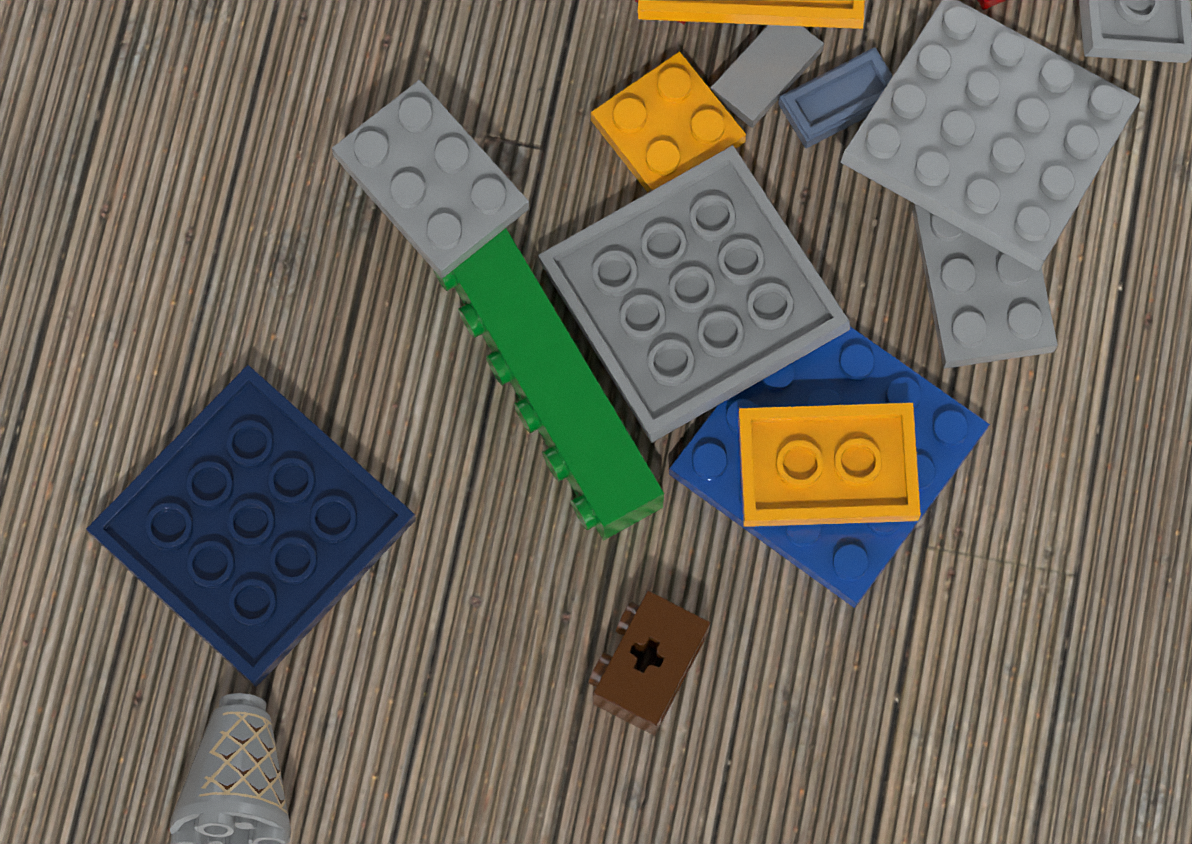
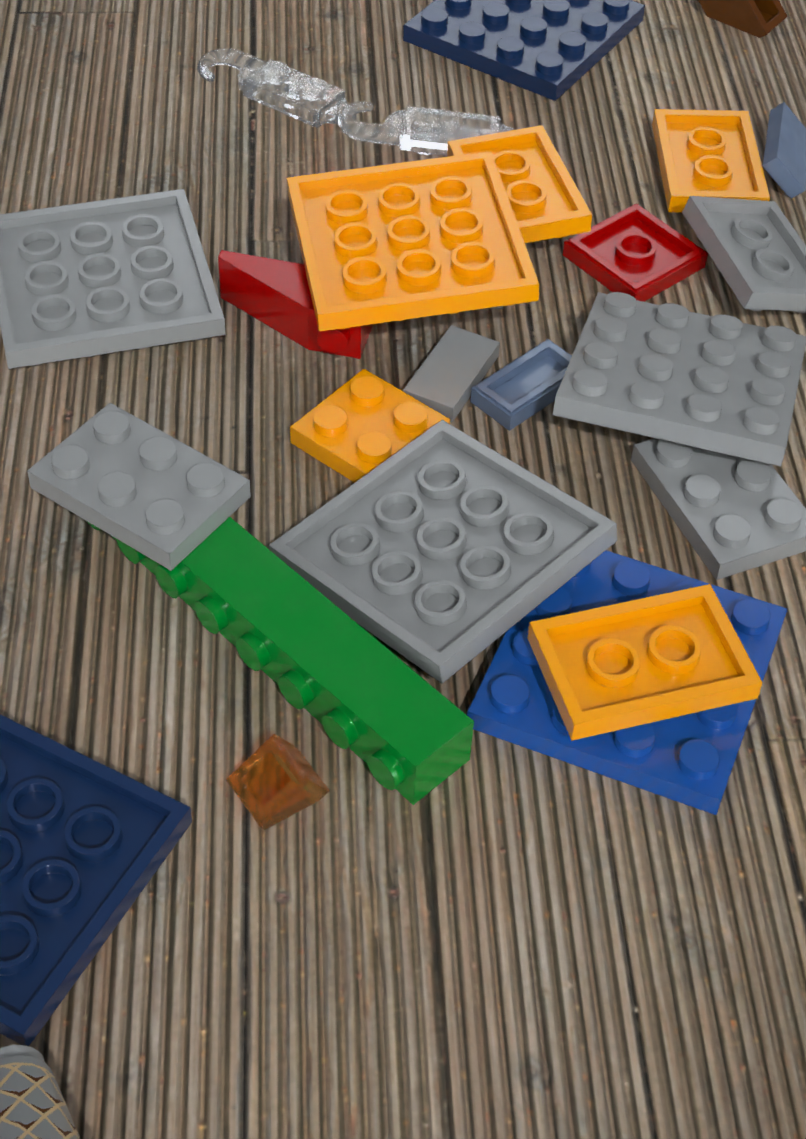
camera: 15 degrees left, 25 degrees down
(494, 497) = (276, 782): none -> clear orange slope
(647, 696) = (500, 944): reddish brown brick -> none

